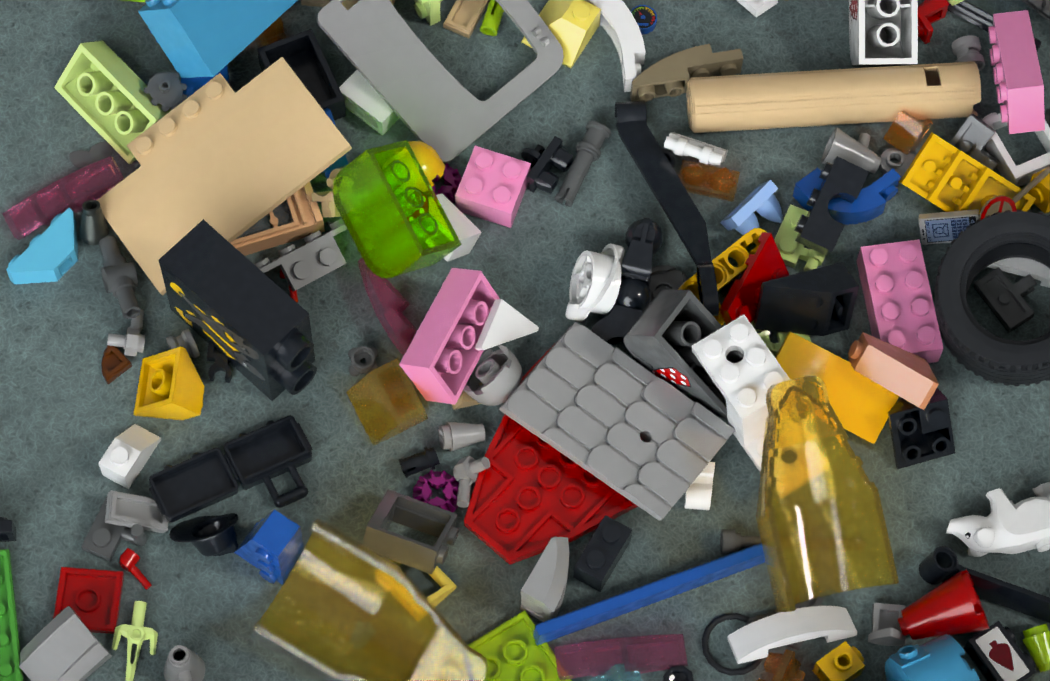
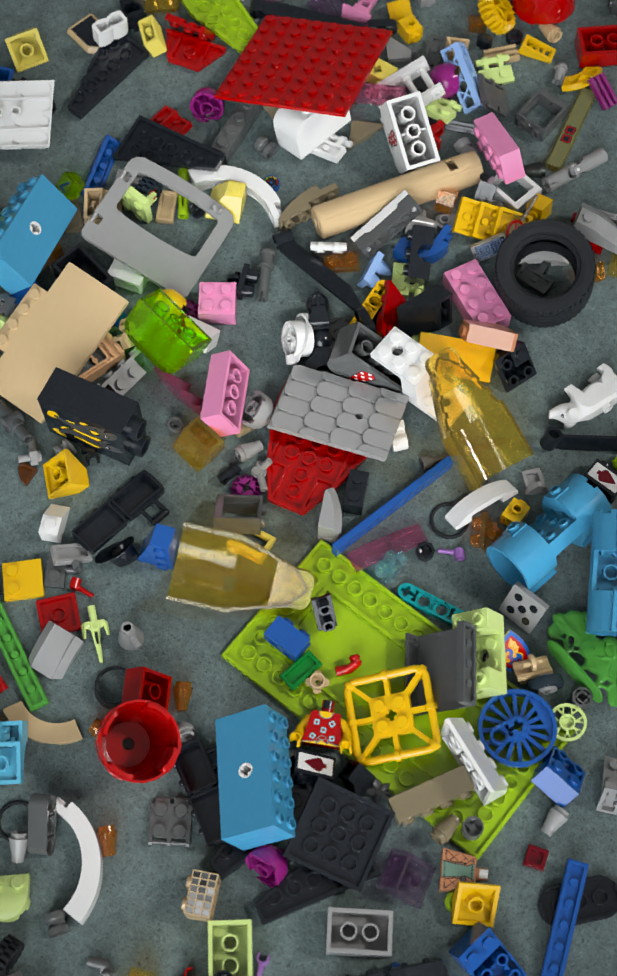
camera: 15 degrees left, 0 degrees up
(53, 529) = (23, 580): none -> yellow plate
(503, 325) = (252, 379): white tile -> none
(508, 33) = (192, 210): none -> black bush
(797, 141) = (386, 224): none -> dark grey piece
(945, 610) = (566, 460): red cone -> none

